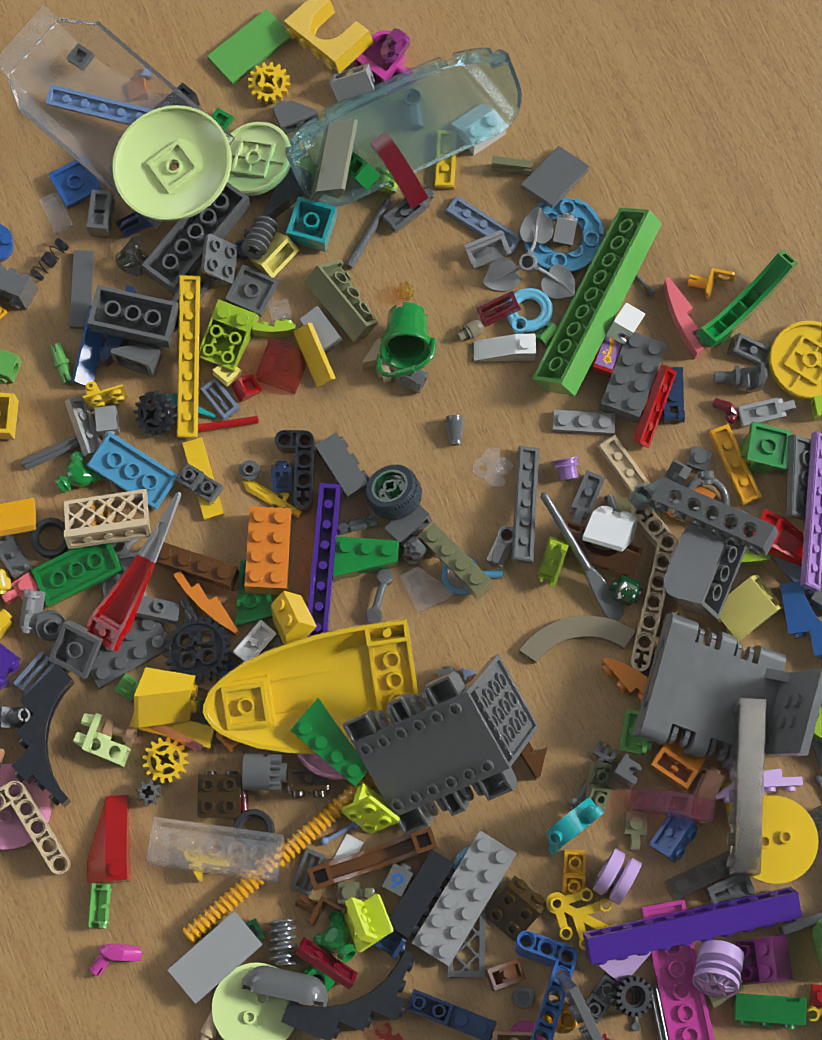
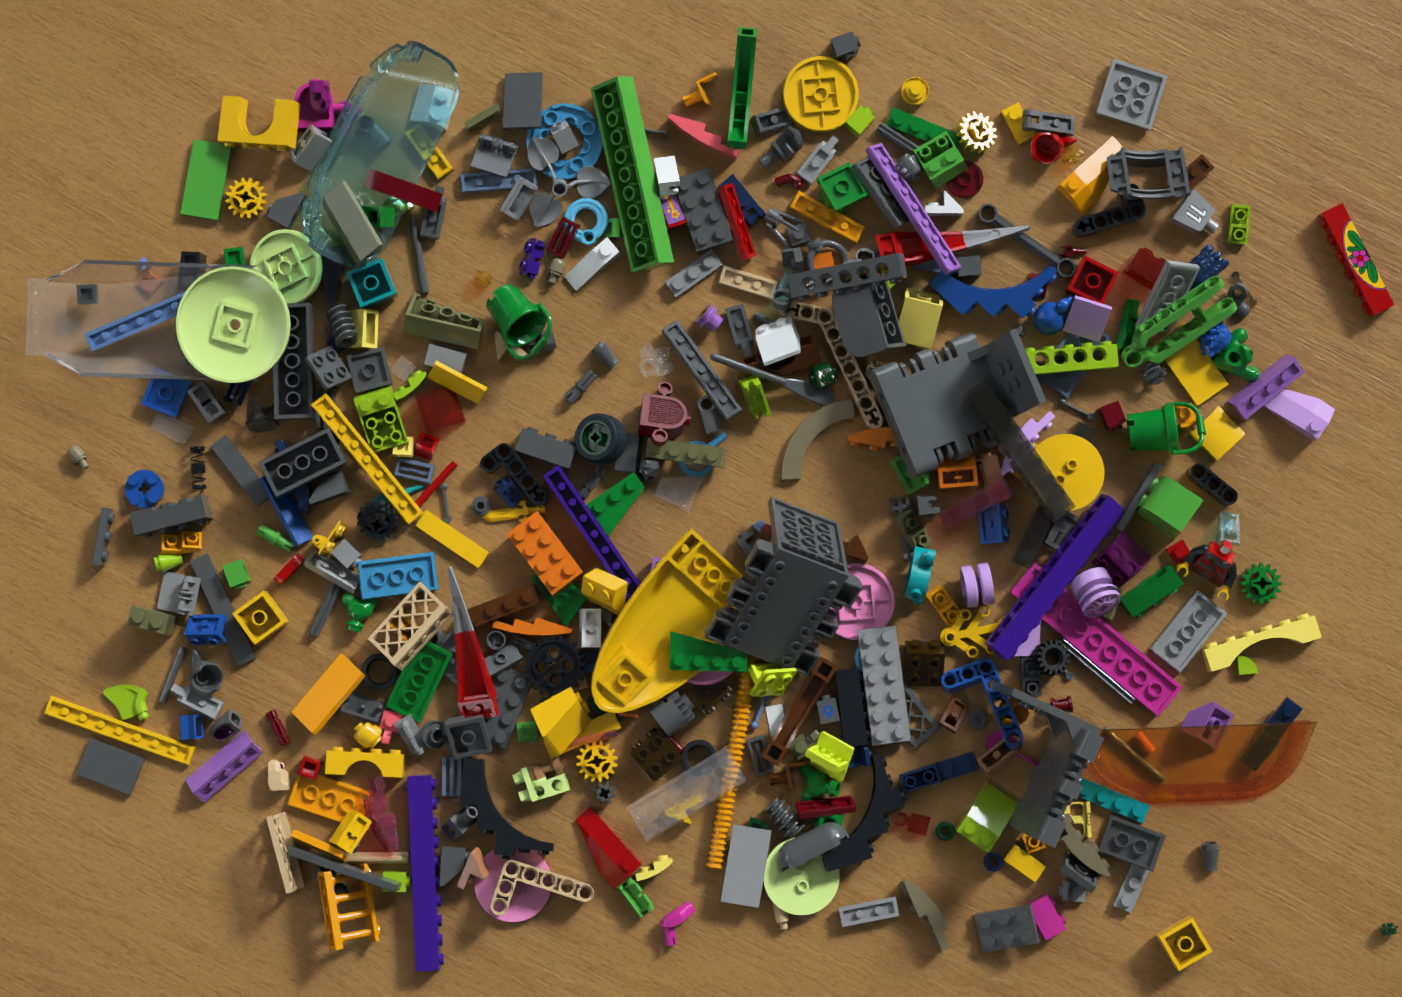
camera: 40 degrees left, 10 degrees up
(50, 396) = (289, 569): none -> red beam
(142, 894) = (659, 865): none -> light yellow slope
(166, 586) = (494, 638): none -> dark grey wheel
(199, 483) = (454, 545): dark grey slope -> none
(213, 459) = (447, 518): none -> dark grey hinge
(384, 578) = (658, 538): dark grey bar -> none
(413, 439) = (580, 386): none -> dark grey axle
(461, 514) = (662, 415): none -> dark red piece
(464, 300) = (528, 265): none -> dark purple hinge
(496, 201) = (494, 155): none -> dark grey hinge
(507, 817) = (873, 605): none -> bright pink plate
(636, 826) = (961, 538): olive plate -> none
(690, 430) = (775, 217): none -> dark grey plant

